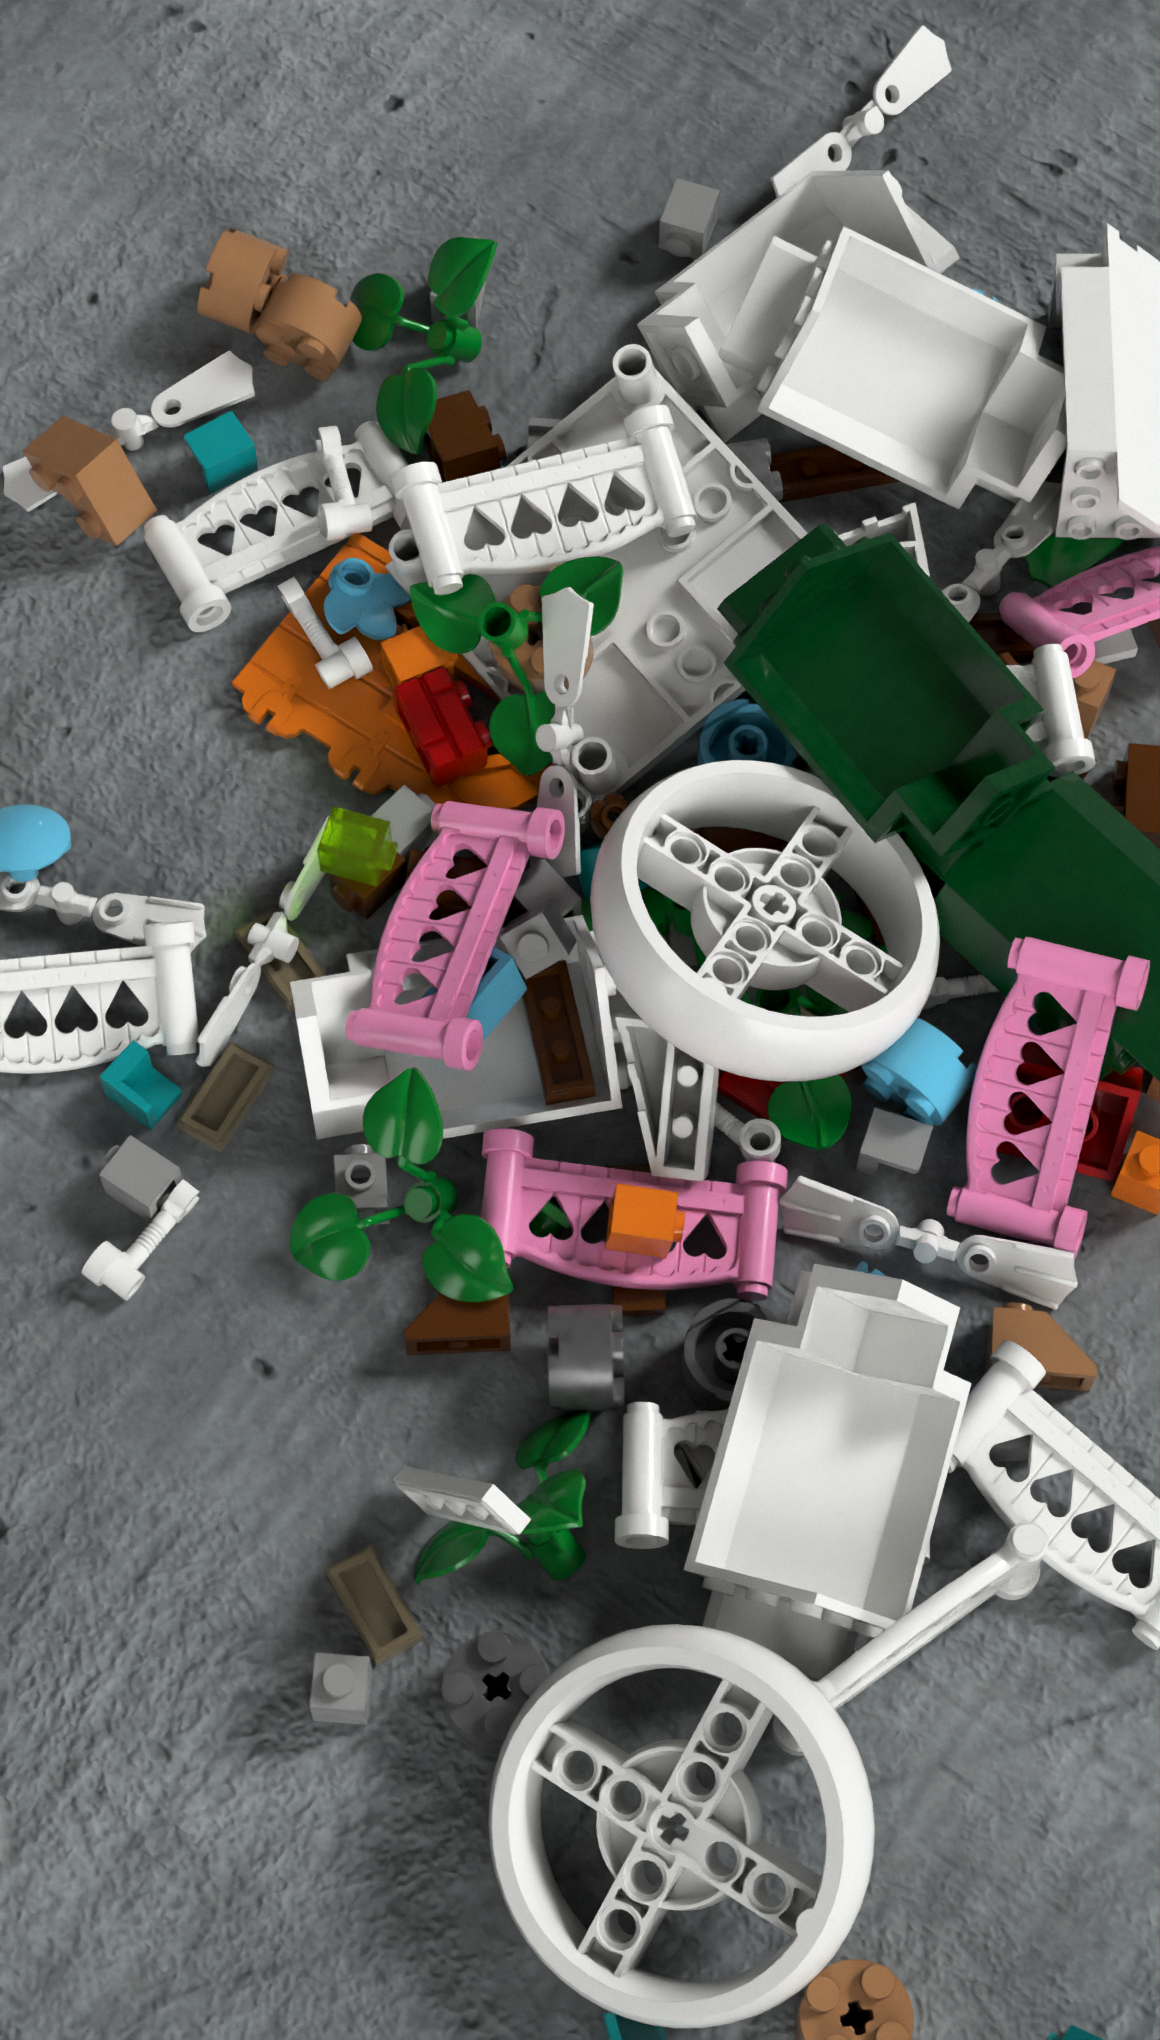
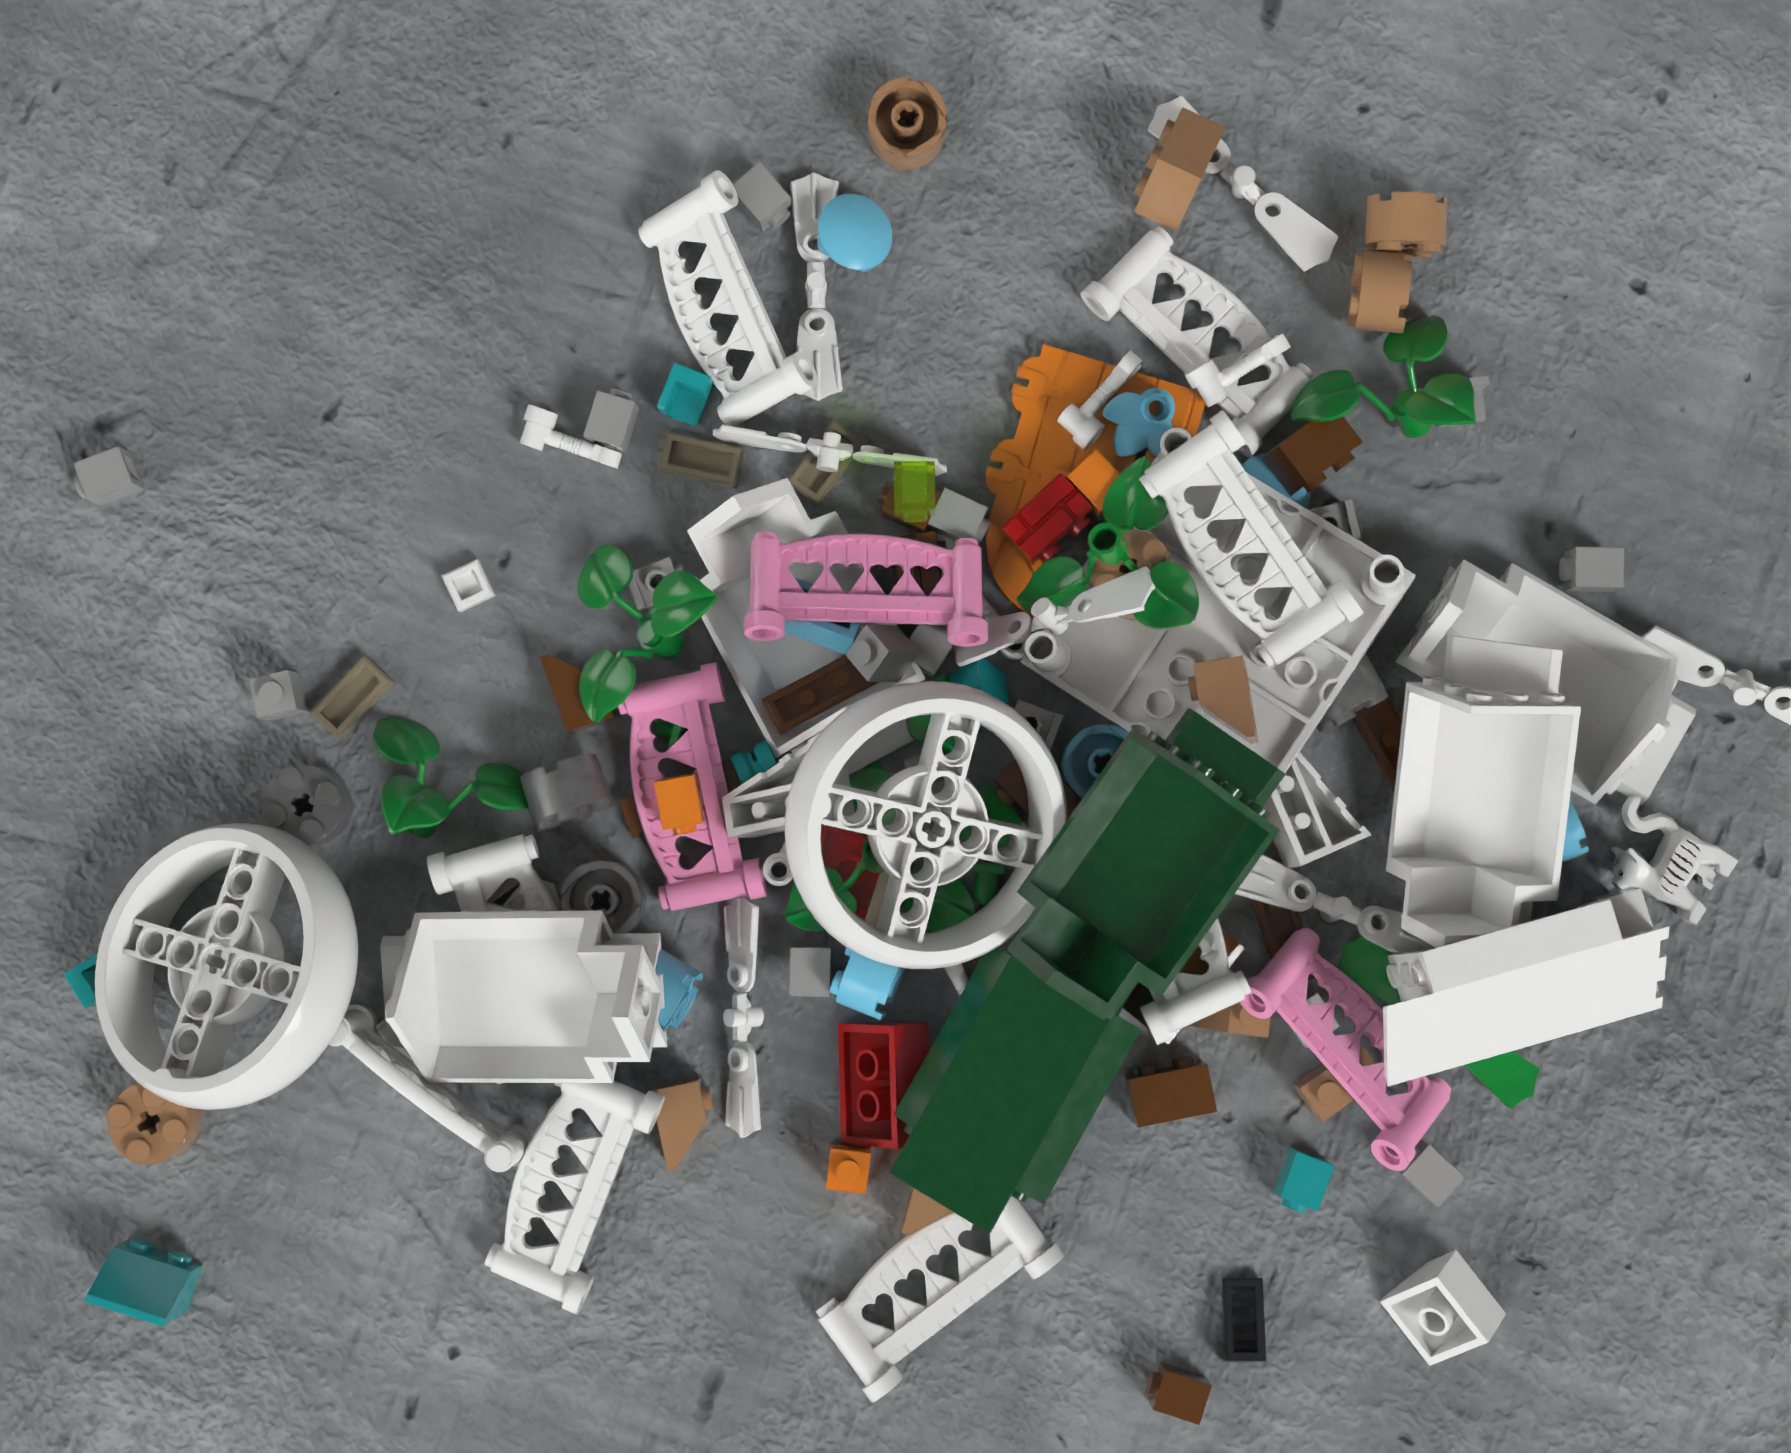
camera: 70 degrees right, 20 degrees up
(222, 451) = (1245, 262): teal panel -> none
(281, 1417) = (468, 585): none -> white tile
(461, 1500) = (413, 738): white tile -> none
(601, 810) = (1018, 670): reddish brown plate -> none
(621, 1135) = (753, 762): none -> teal wheel
(709, 573) = (1225, 694): none -> medium nougat slope
(1035, 236) = (1673, 865): none -> white animal
(1090, 991) = (945, 1093): bright pink piece -> none

